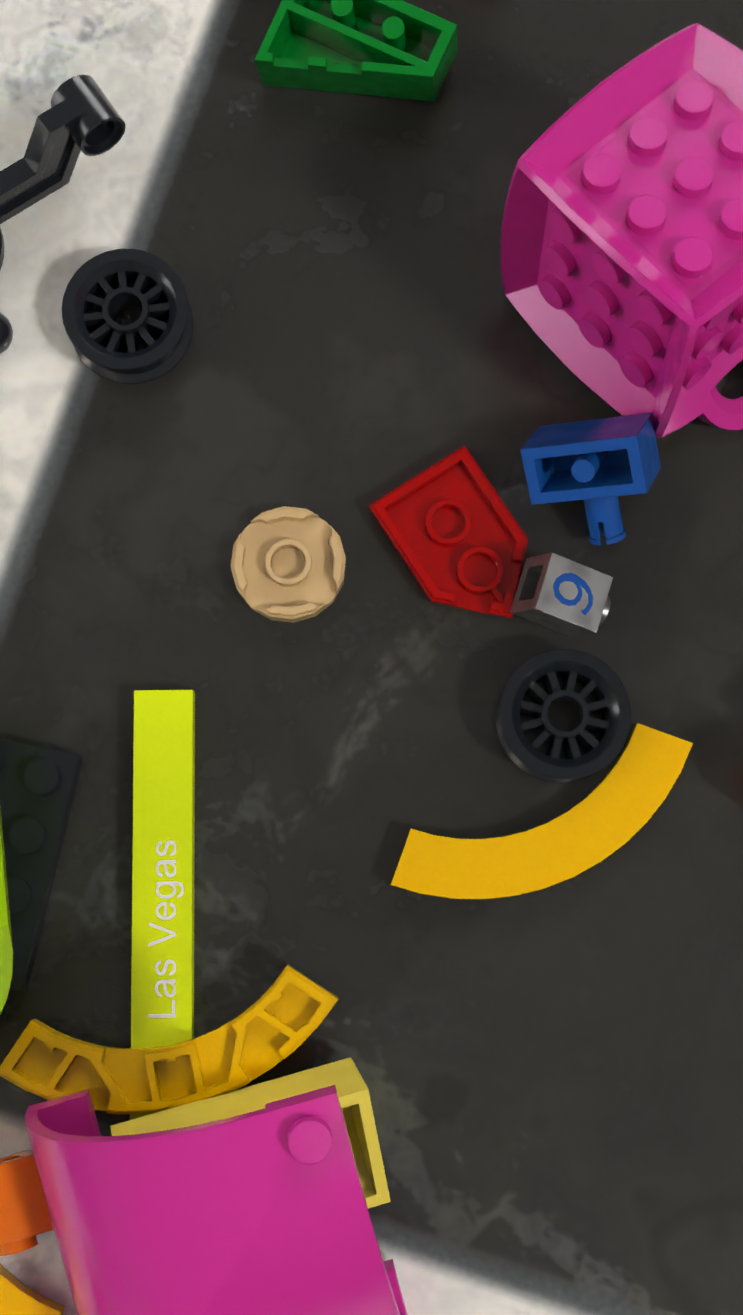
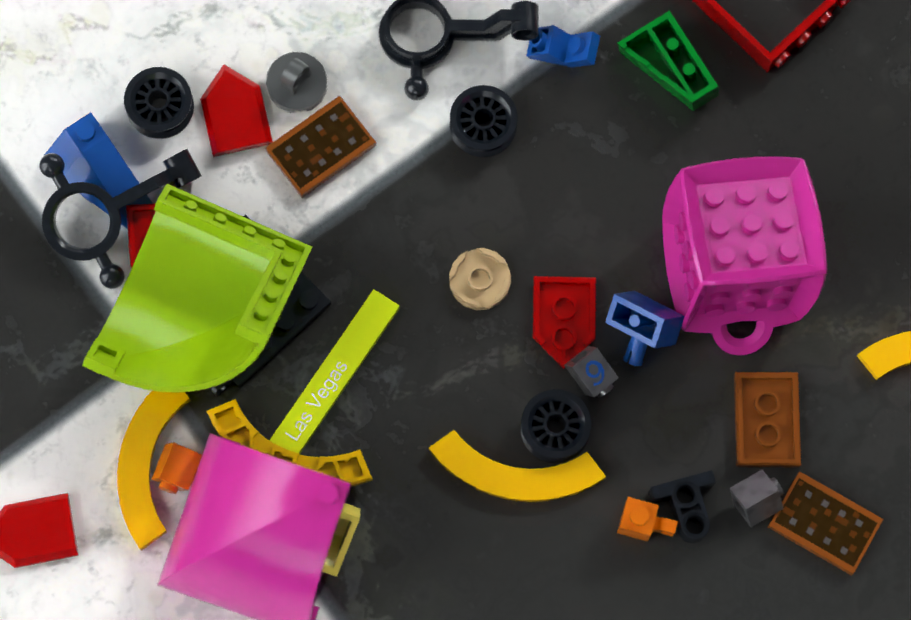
camera: 35 degrees right, 5 degrees down
(176, 131) = (561, 48): none -> blue slope

